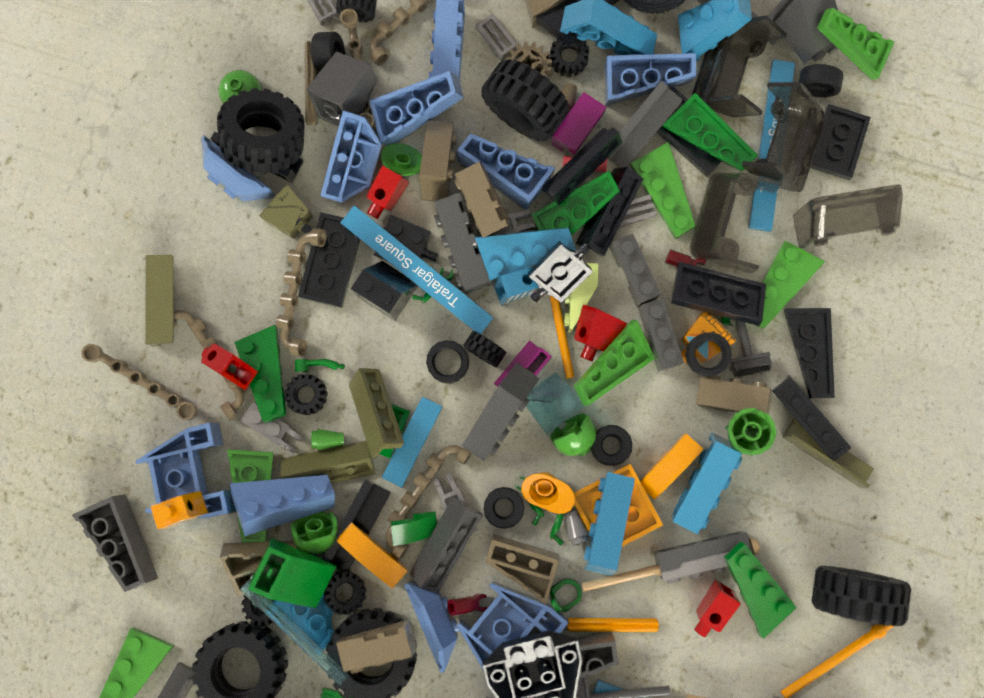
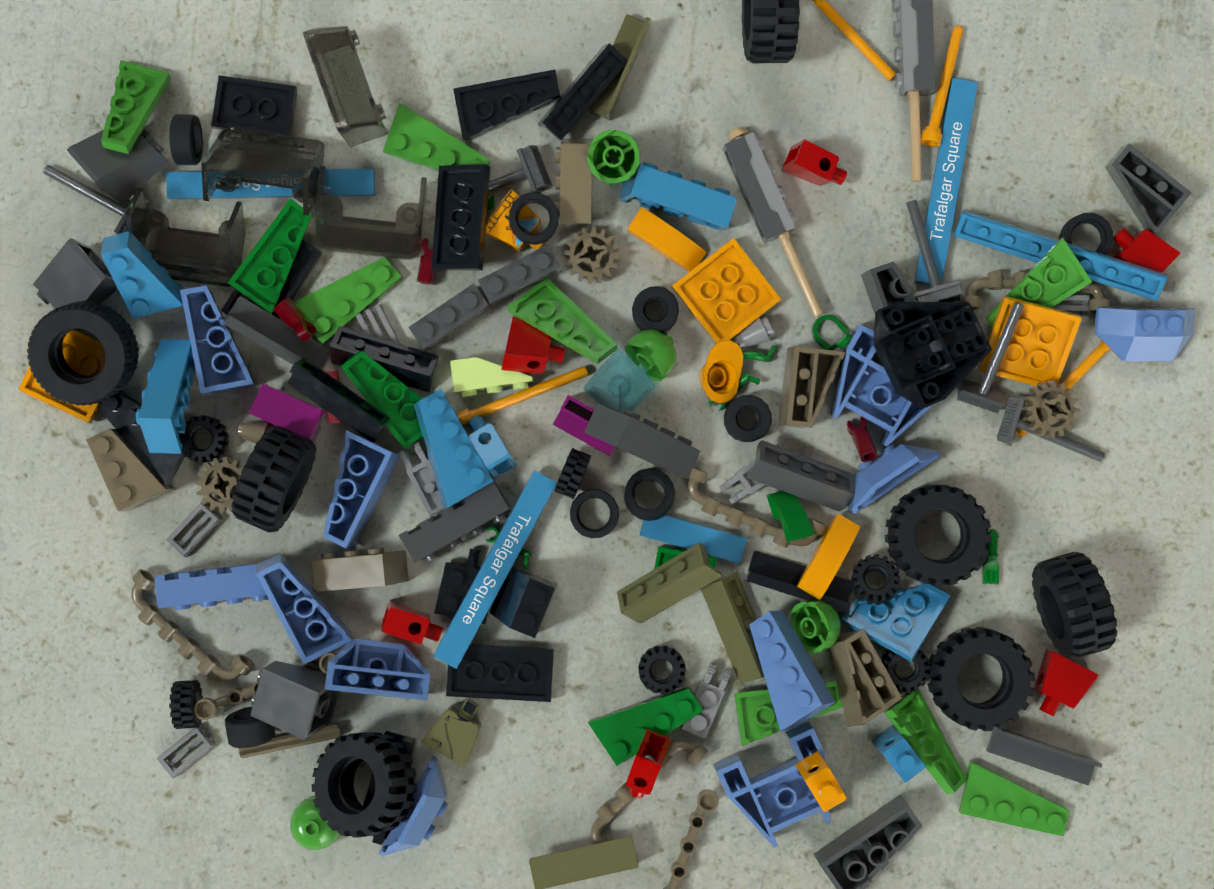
camera: 100 degrees left, 5 degrees up
(190, 584) = (898, 754): none -> dark azure torso
(198, 610) = (919, 728): none -> bright green wing
(290, 300) = (530, 710): dark tan bar -> none
(291, 575) = (868, 640): green slope -> none
(296, 634) = (901, 668): clear light blue axle -> none
(301, 365) = (629, 680): green piece -> none
(326, 439) = (708, 635): bright green cone -> none
(376, 646) = (927, 528): dark tan wedge -> none
(401, 159) = (365, 612): bright green dish -> none
(471, 415) = (652, 475): none -> black tyre
(482, 199) = (401, 507): dark tan wedge -> none
(560, 272) = (470, 402): plate -> none
(610, 523) = (744, 296): dark azure wedge -> none
(612, 625) = (852, 274): light orange axle -> none
(655, 143) = (294, 318): none -> dark red bar
(666, 390) = (579, 259): none -> dark tan gear
(762, 595) = (787, 118): green wing -> none

